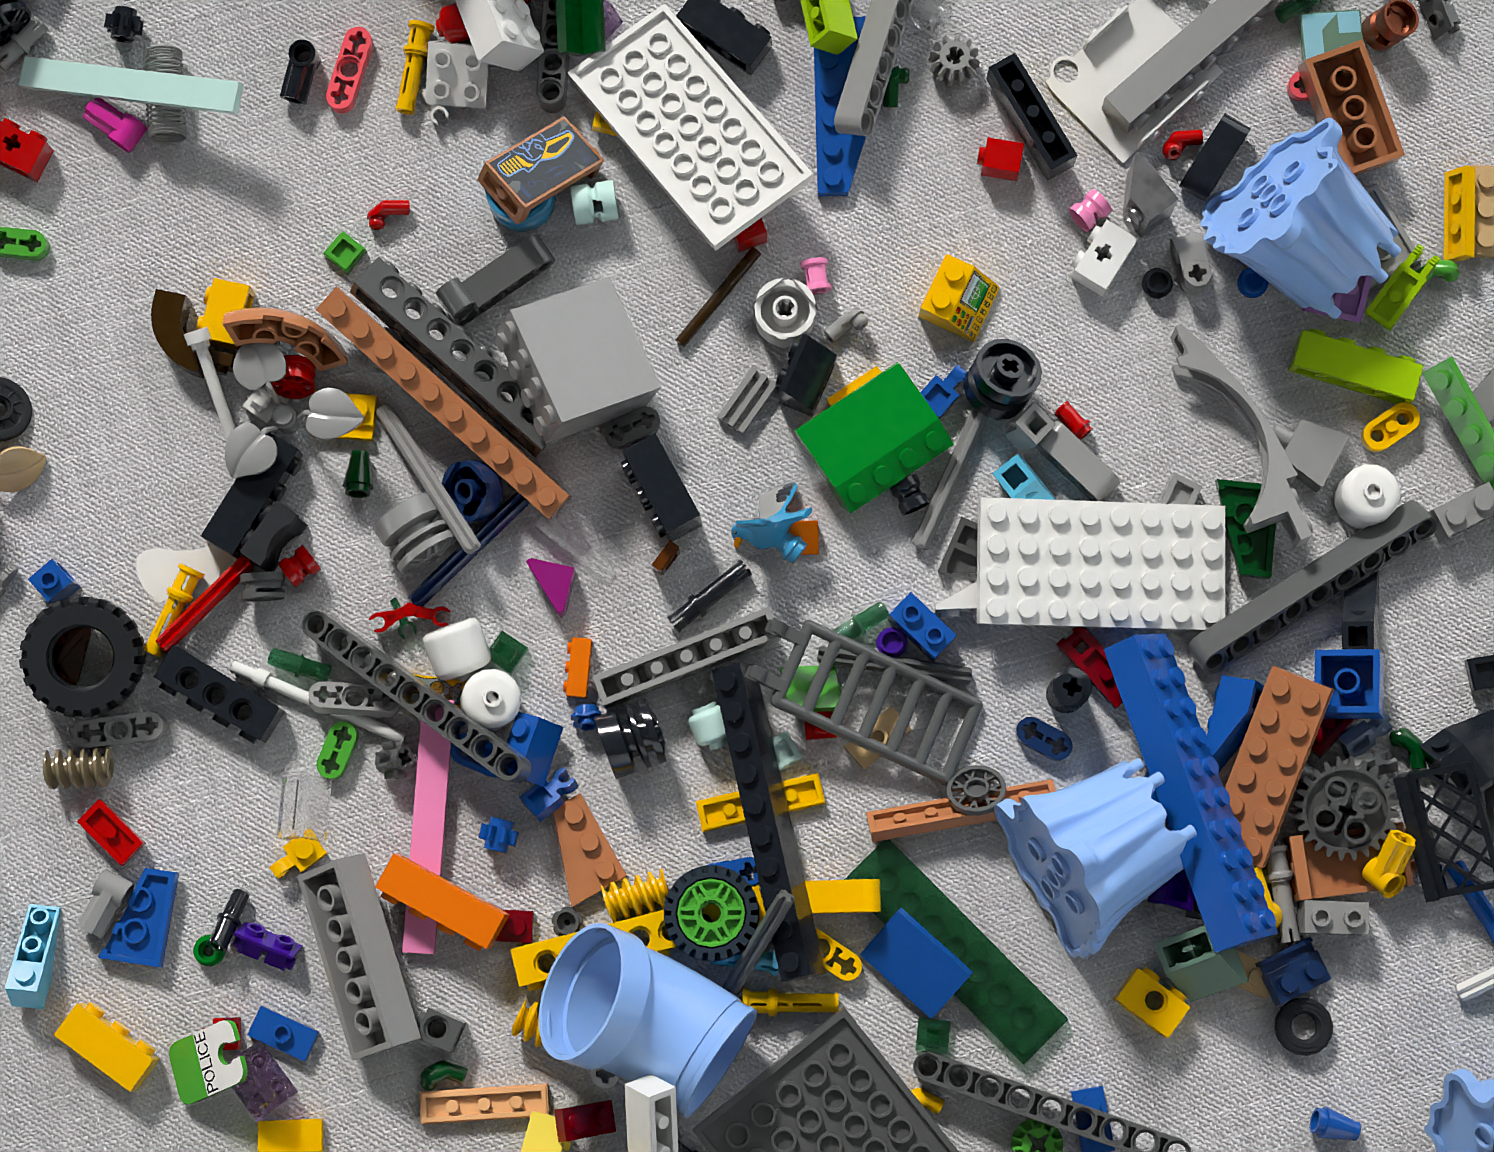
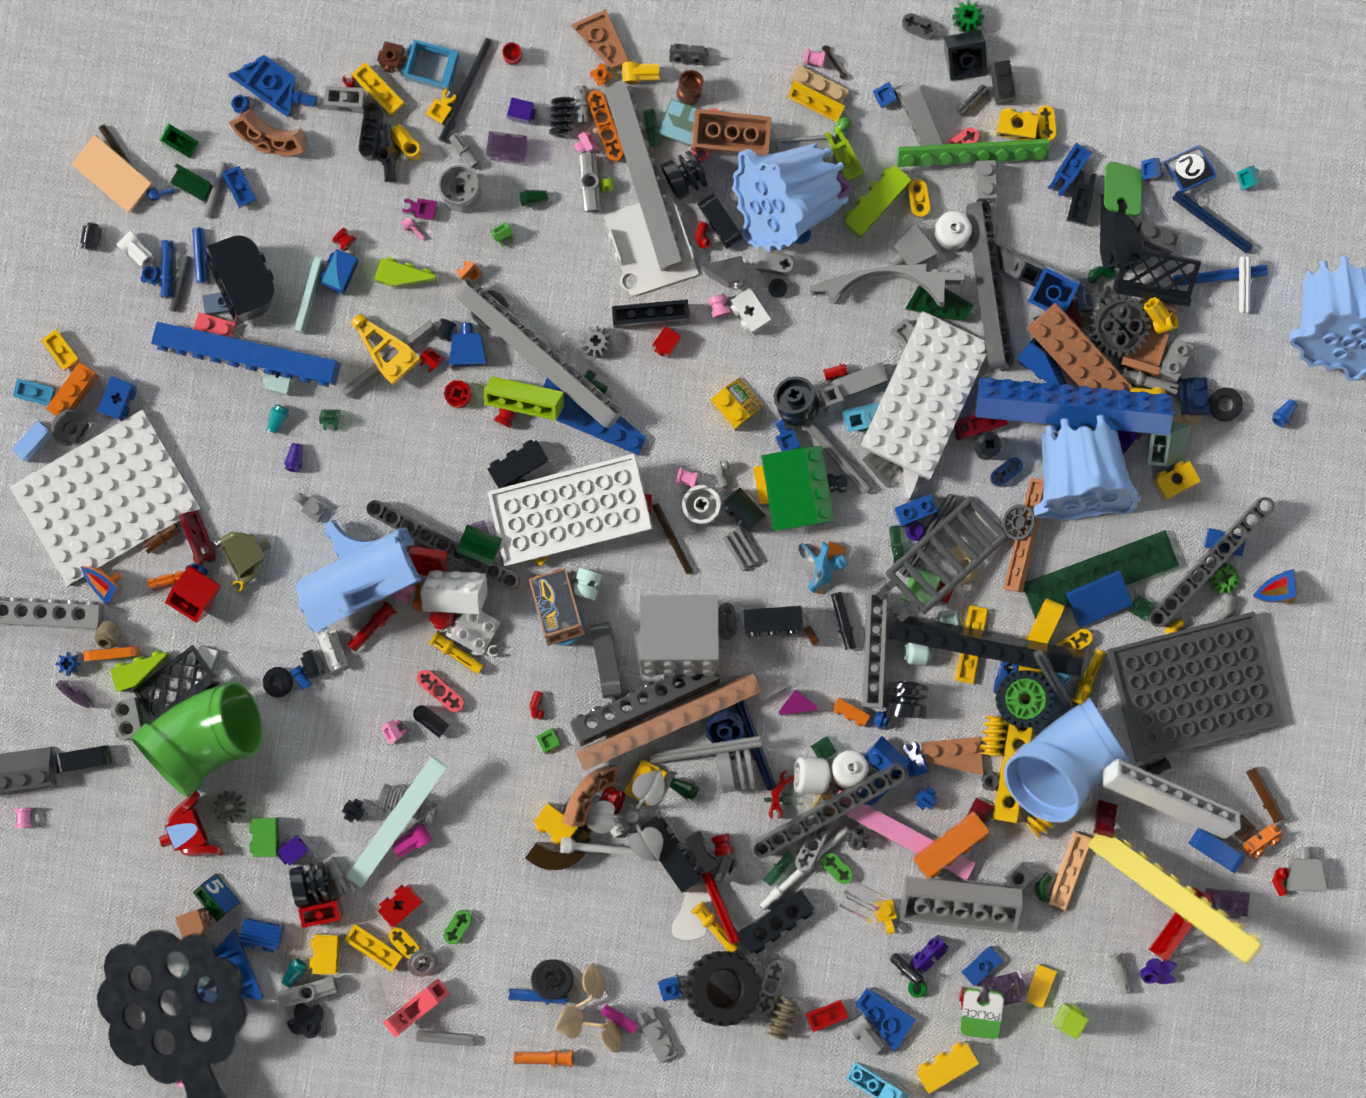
camera: 65 degrees left, 5 degrees up
(259, 28) = (392, 732): none -> bright pink tile
(1257, 72) = (684, 175): none -> black wheel

